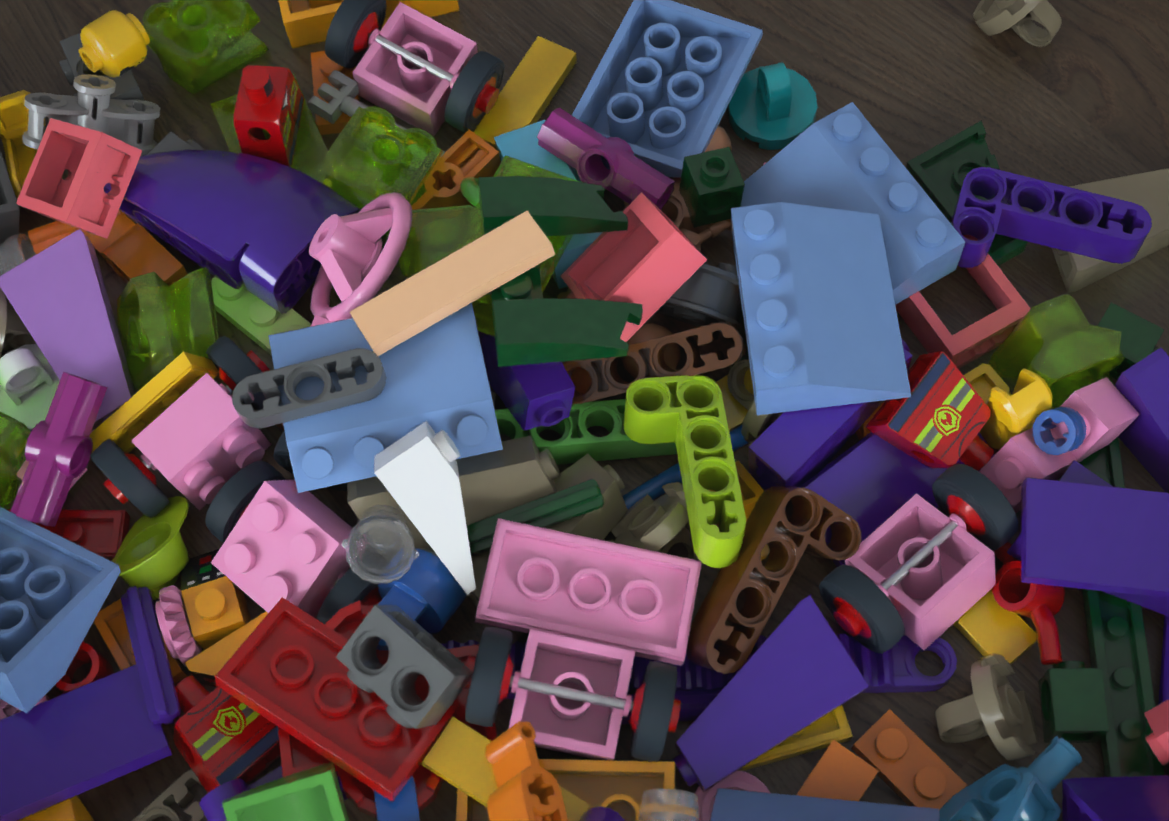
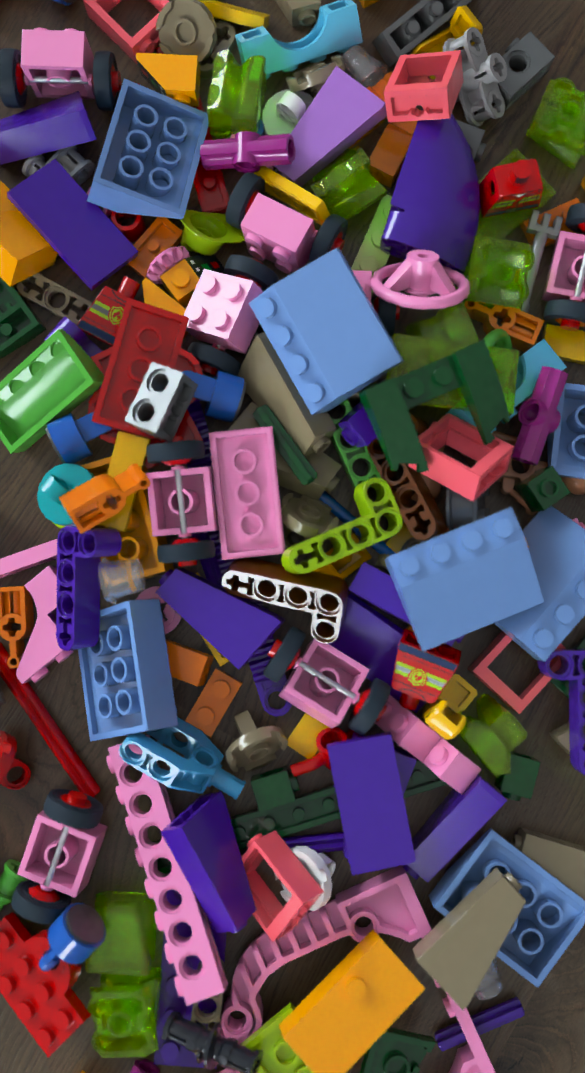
camera: 70 degrees right, 20 degrees up
(114, 43) = (533, 67): yellow head -> none
(150, 656) = (142, 256): dark purple axle -> none
(276, 412) = (287, 270): dark grey beam -> none
(380, 545) = (236, 363): clear piece -> none
(426, 484) = (270, 377): white slope -> none
(452, 283) = (401, 348): light nougat tile -> none
(1043, 426) = (423, 751): blue bush -> none

